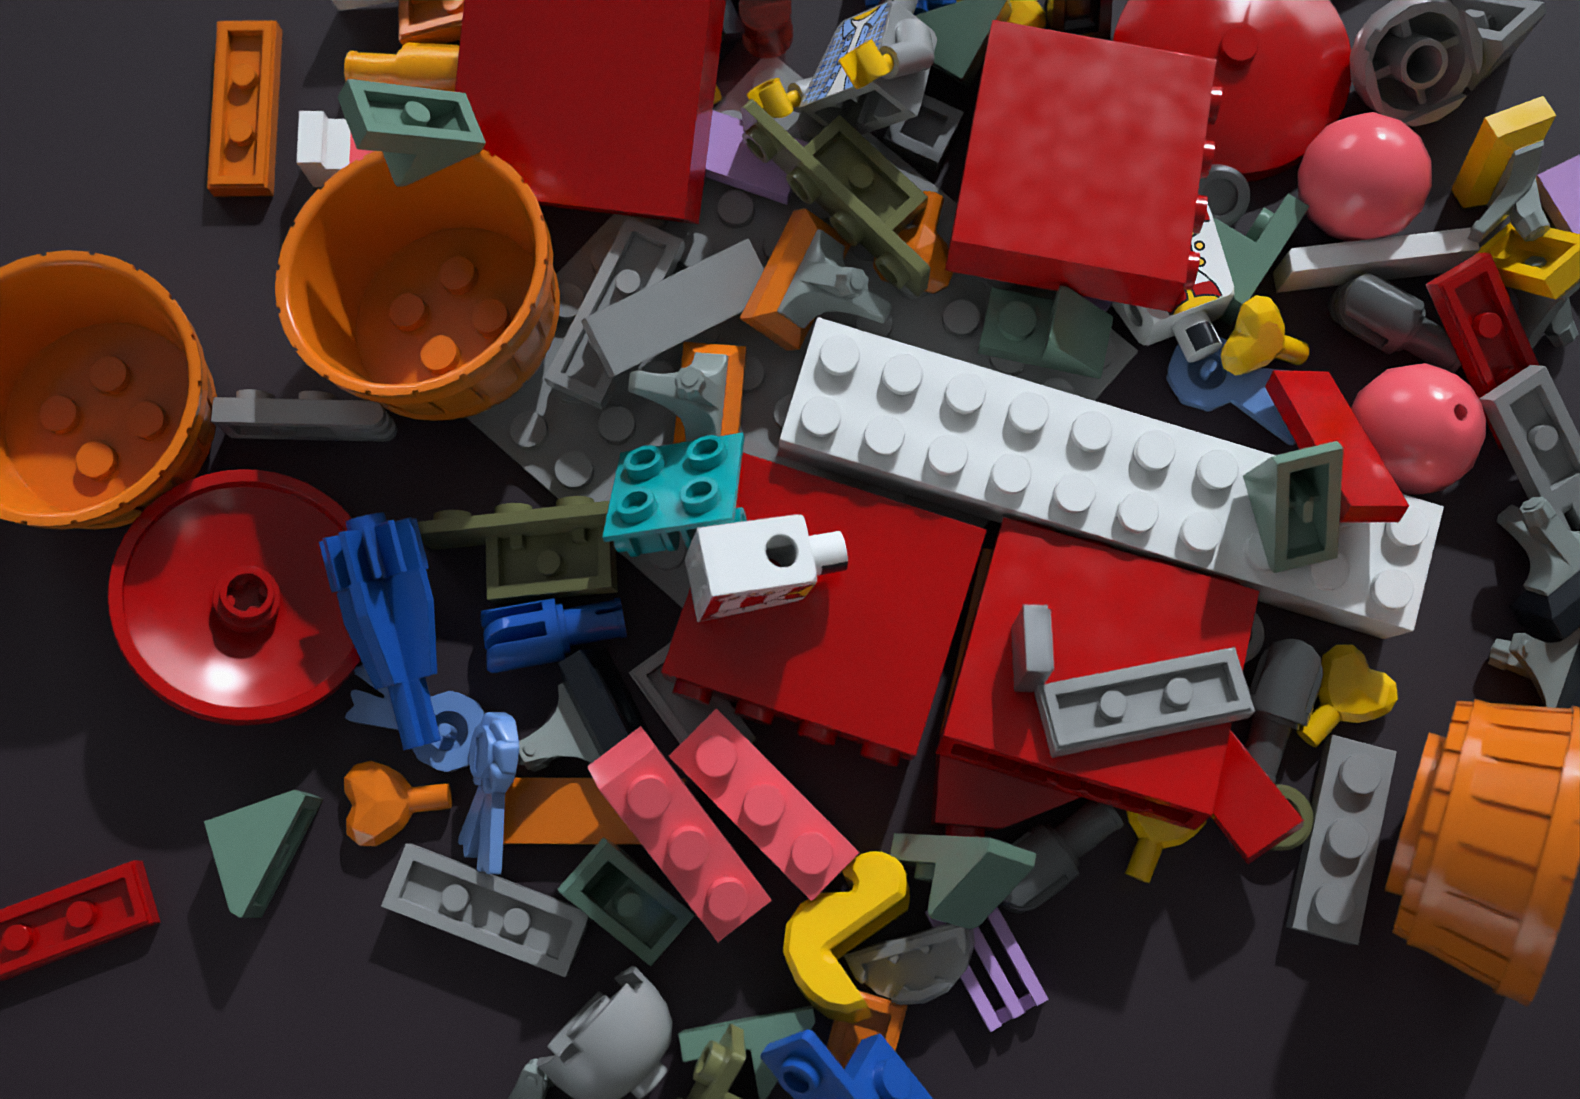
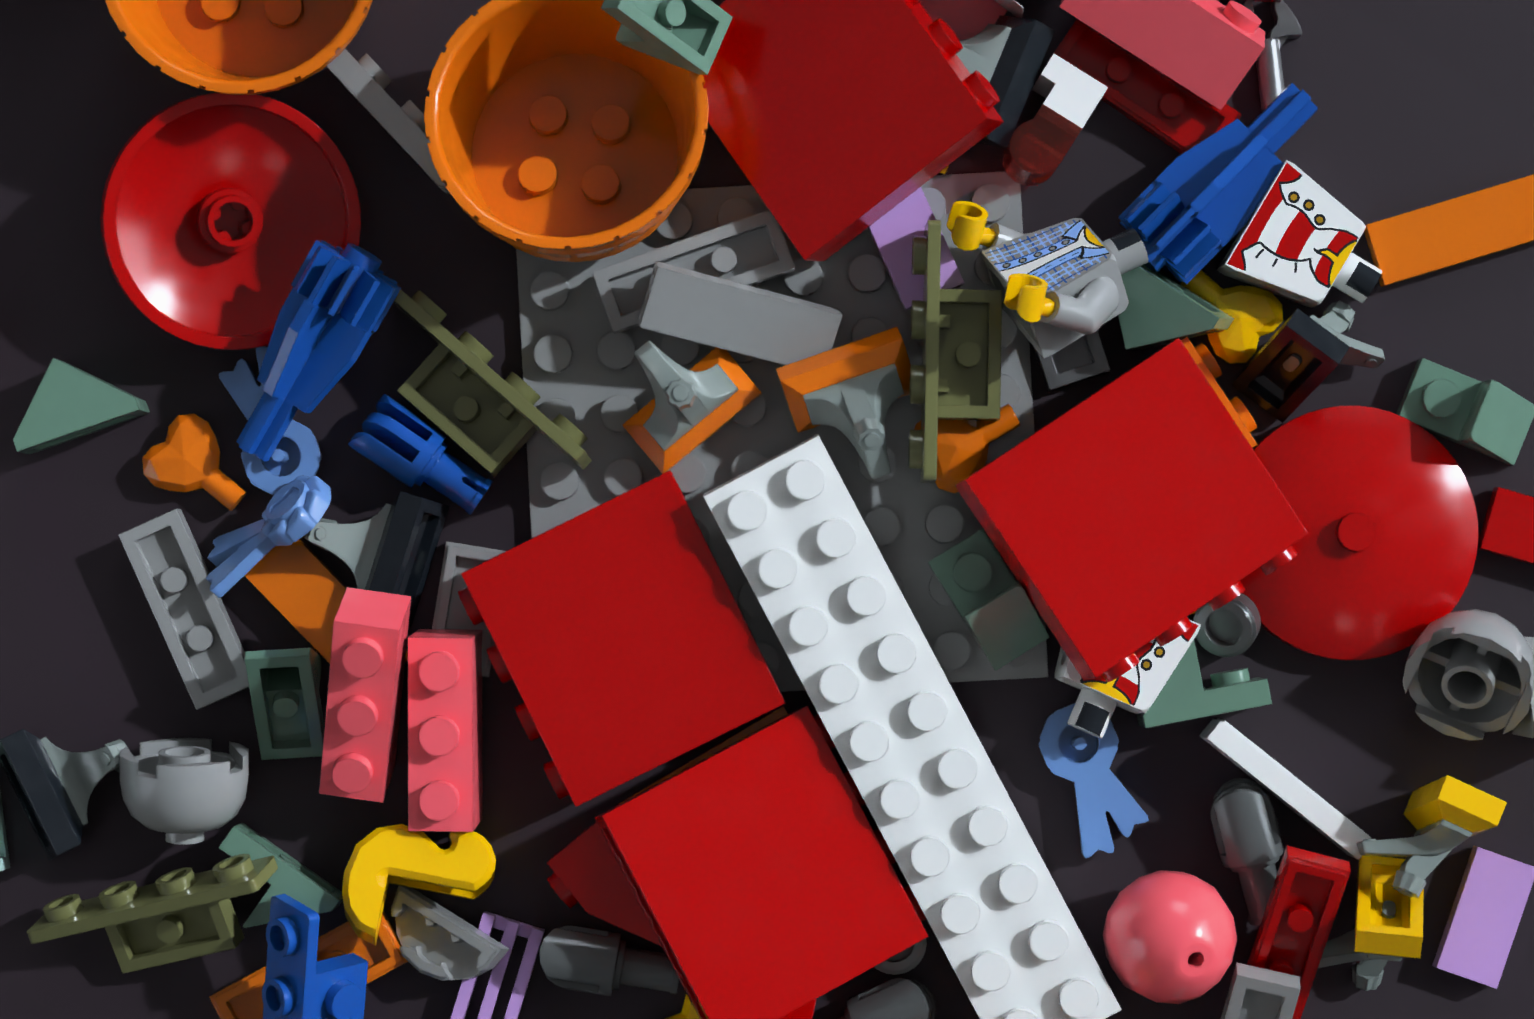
camera: 40 degrees right, 10 degrees up
(673, 491) = (596, 459): teal hinge -> none
(732, 568) = (572, 562): white torso -> none
(965, 872) = (527, 920): sand green slope -> none
(1032, 647) = (719, 820): flat silver tile -> none
(1143, 701) = (759, 930): light grey tile -> none
(1260, 339) = (1134, 760): yellow rock -> none
(1298, 505) = (1004, 909): sand green slope -> none
(1320, 415) = (1090, 892): red tile -> none
(1364, 177) = (1335, 724): coral piece -> none

